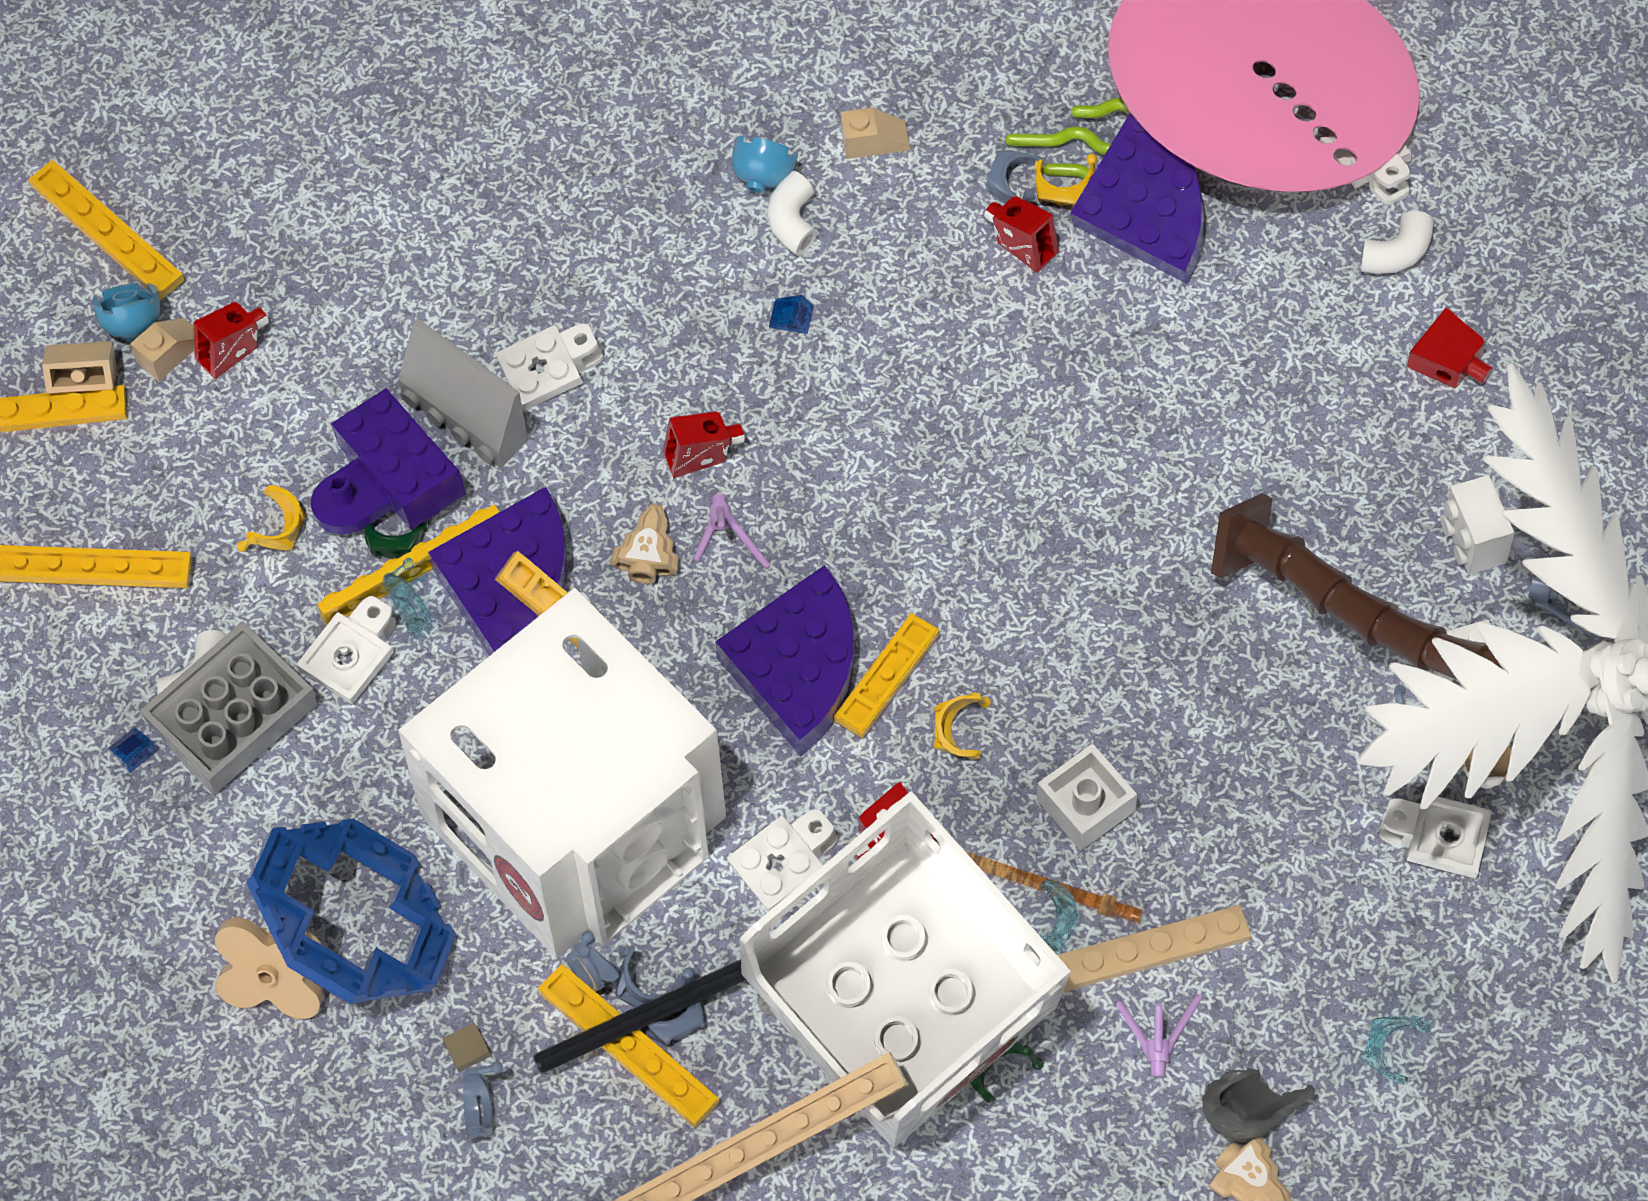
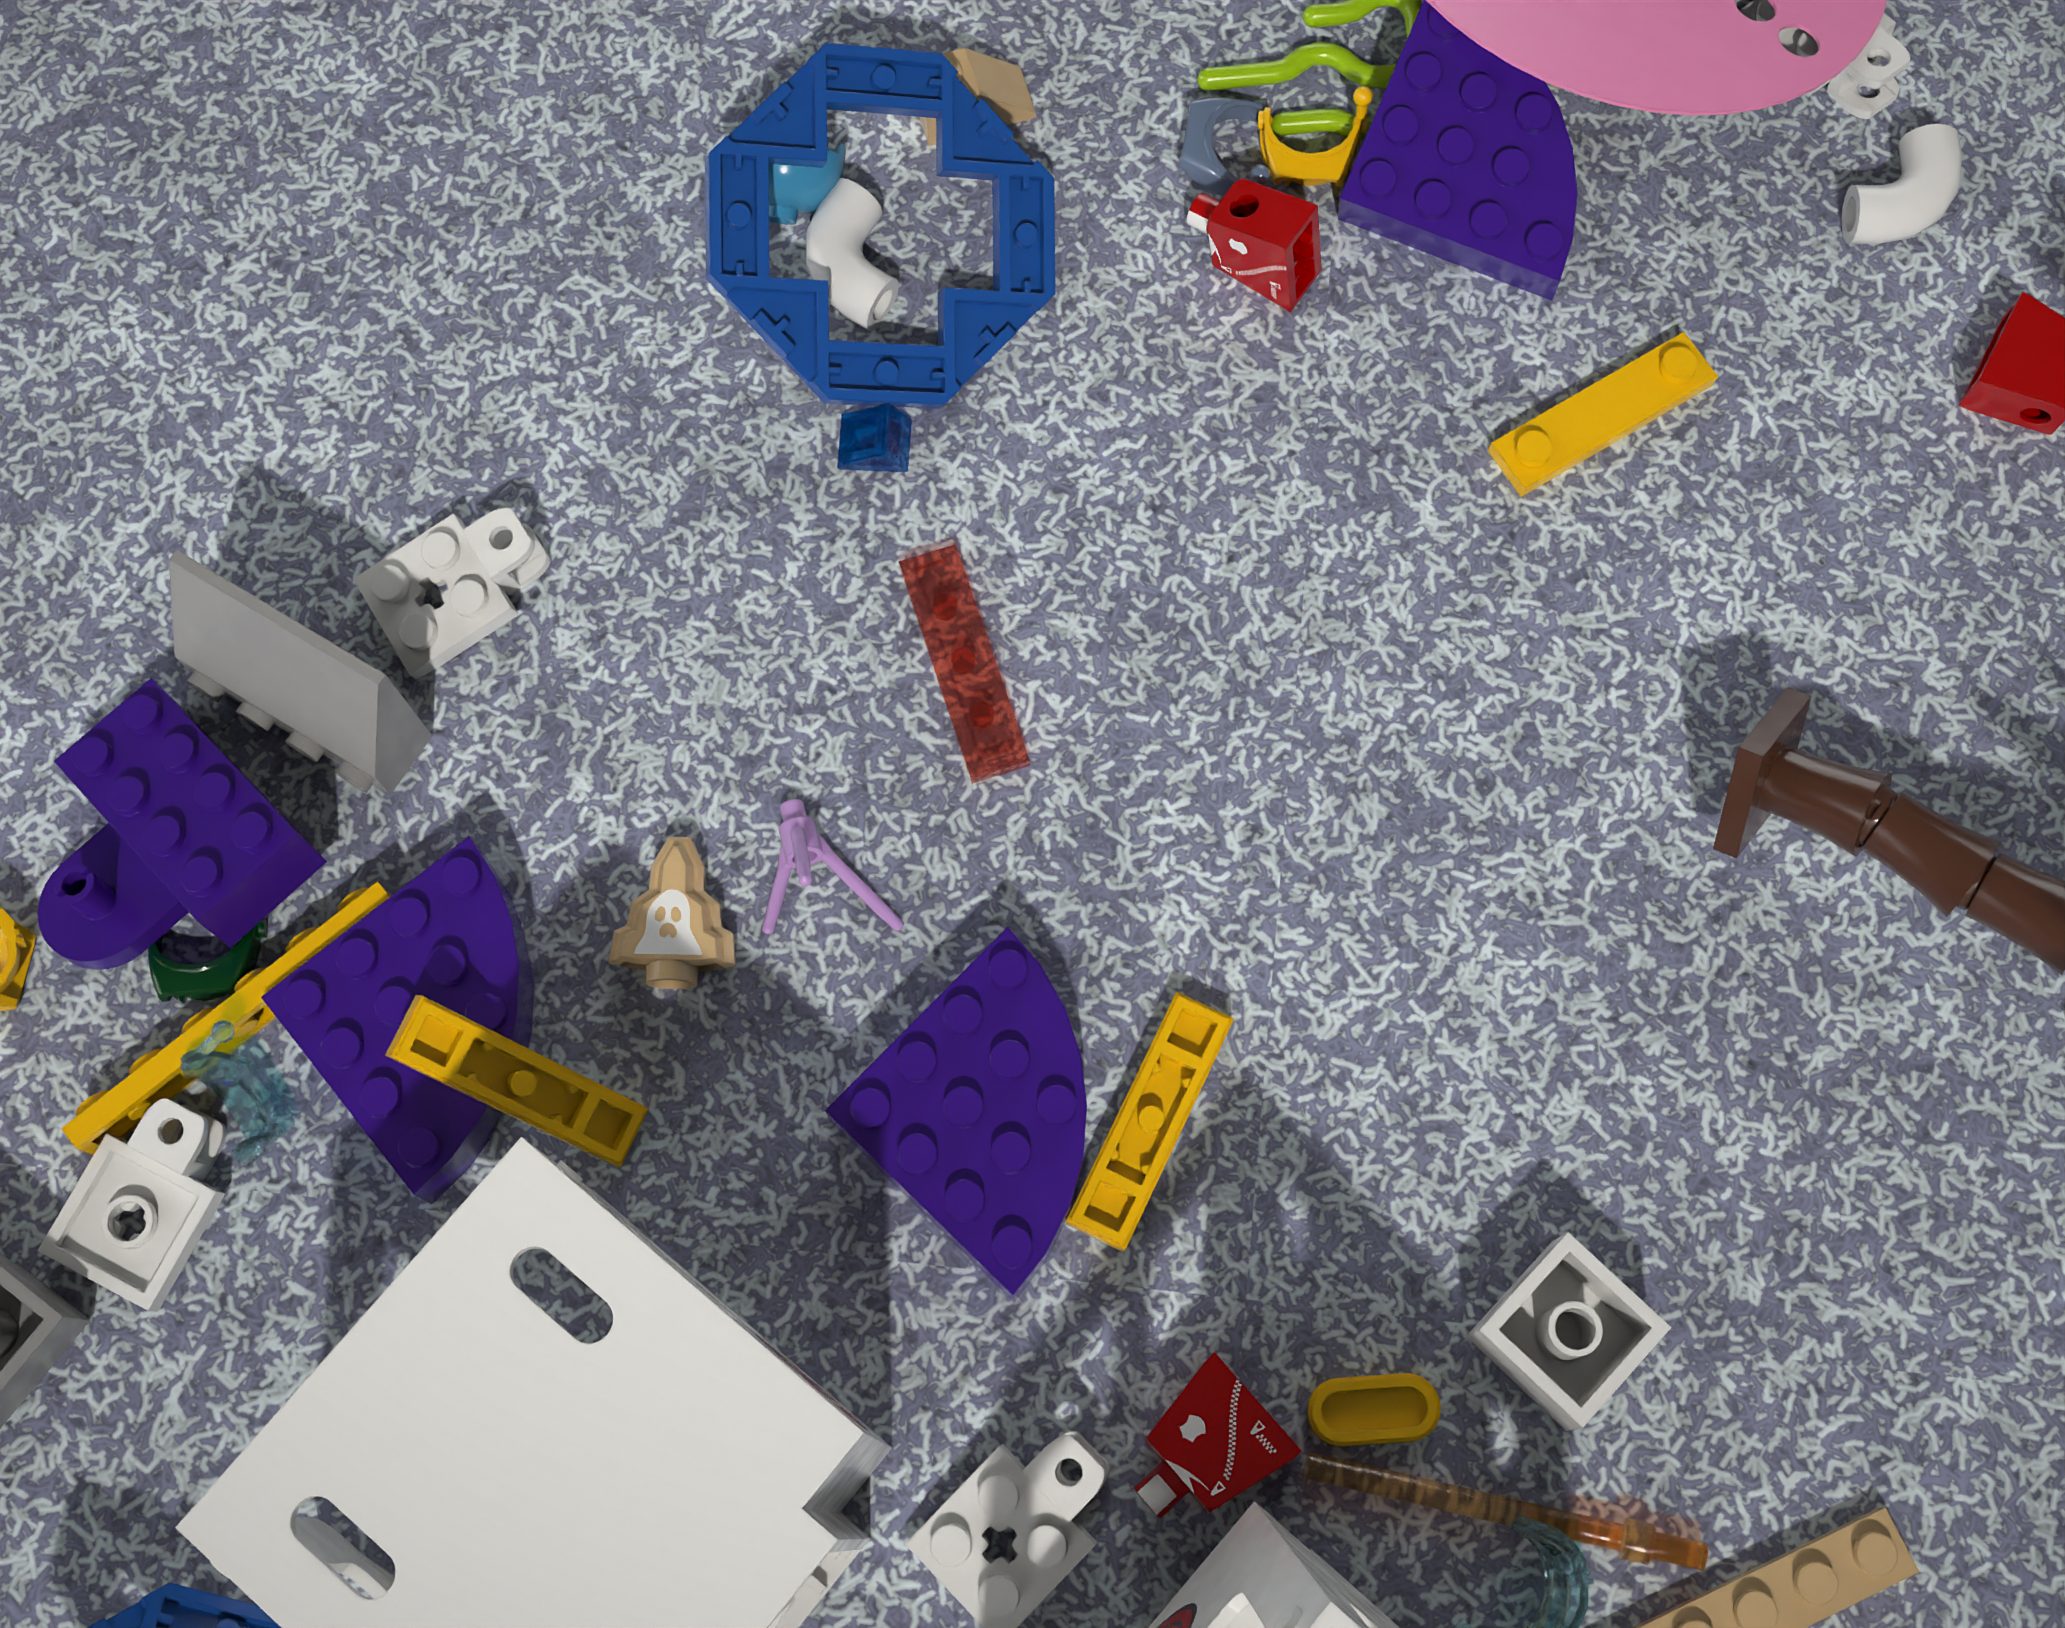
camera: 10 degrees left, 10 degrees up
(698, 442) = (742, 707): red torso -> none
(757, 239) = (795, 312): none -> blue plate
(823, 436) = (964, 664): none -> clear red tile
(944, 717) = (1272, 1231): yellow helmet -> none
(981, 828) = (1373, 1409): none -> yellow tile
(1202, 347) = (1602, 414): none -> yellow plate

